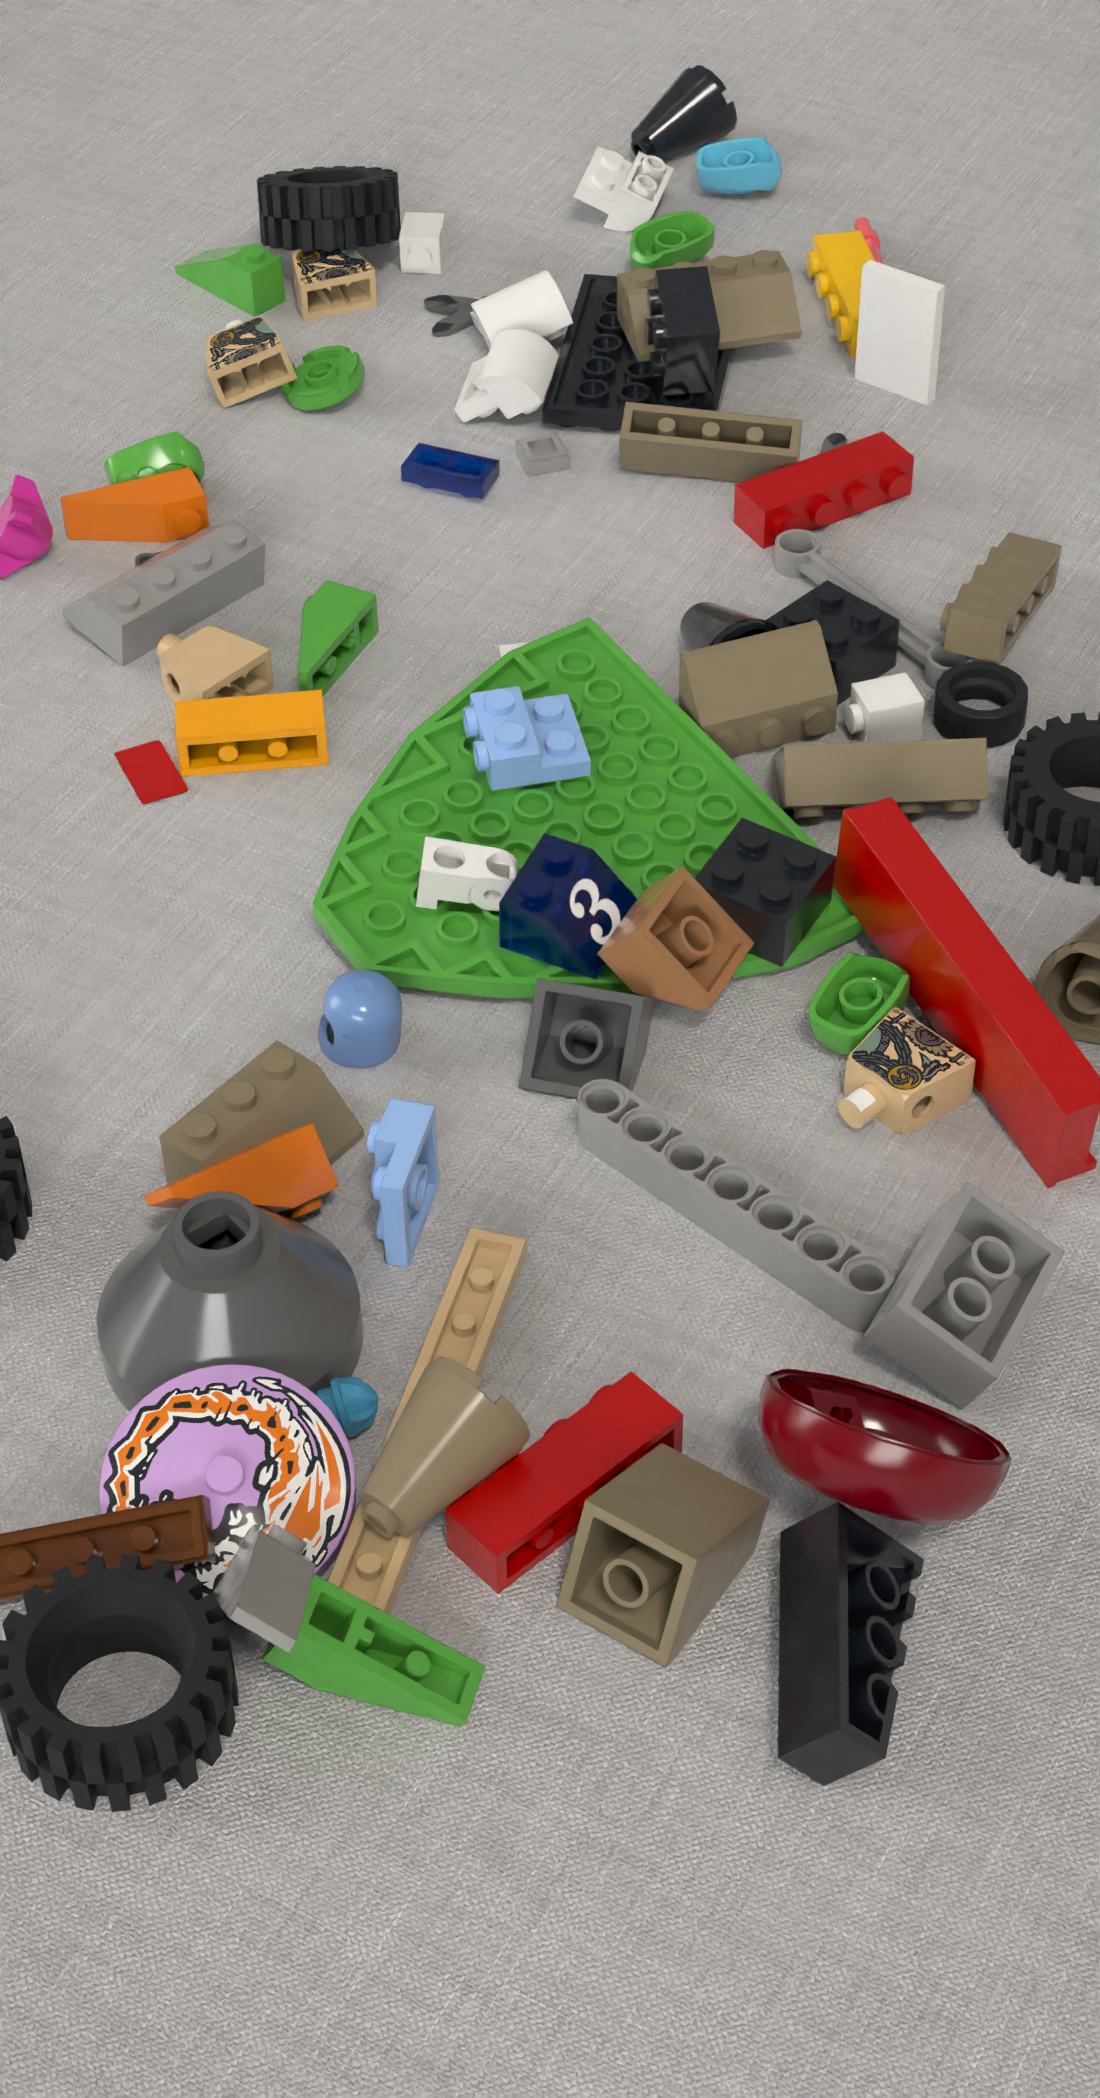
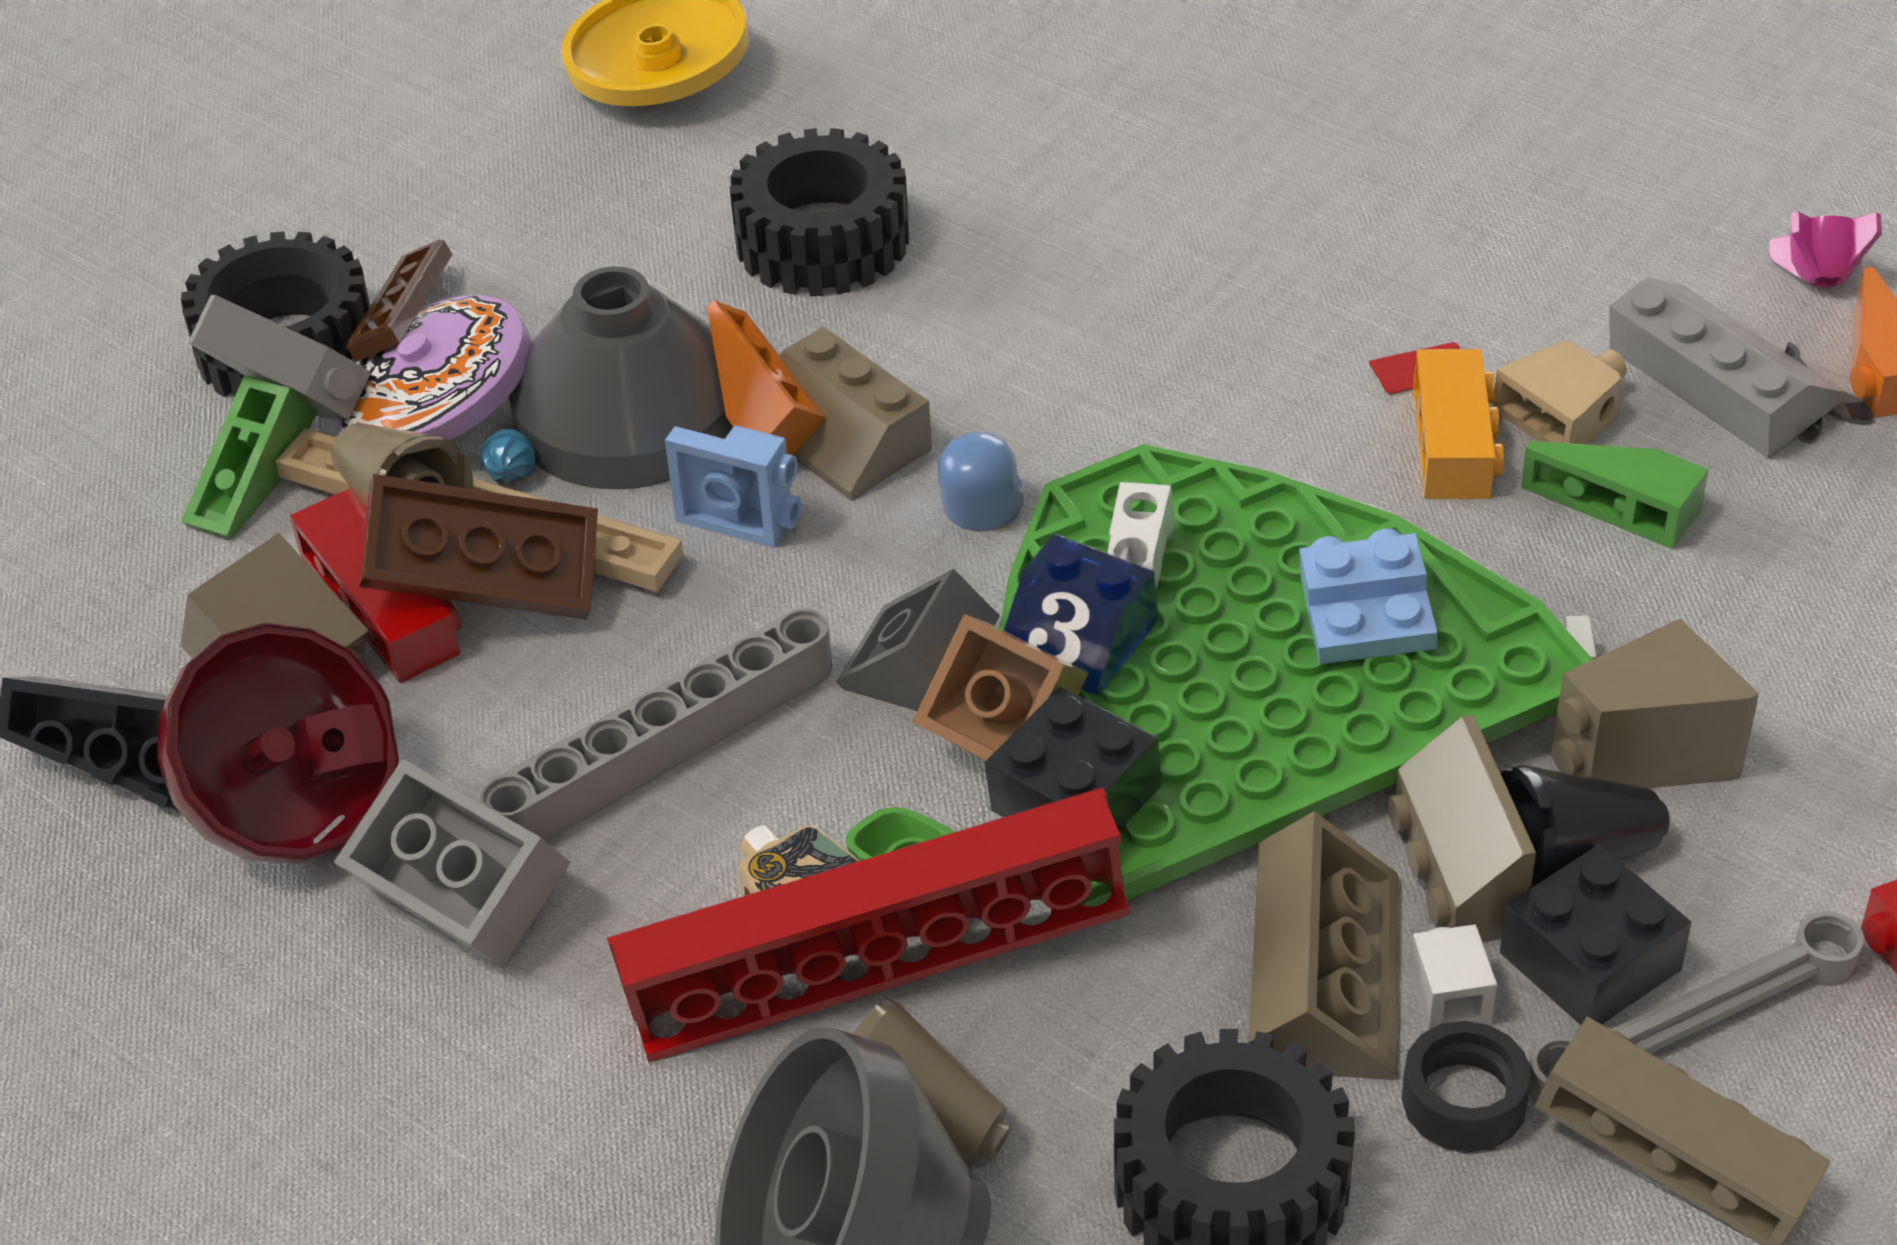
camera: 100 degrees right, 0 degrees up
(552, 1348) = (479, 547): none -> reddish brown plate
(614, 588) = (1655, 714): none -> dark tan slope

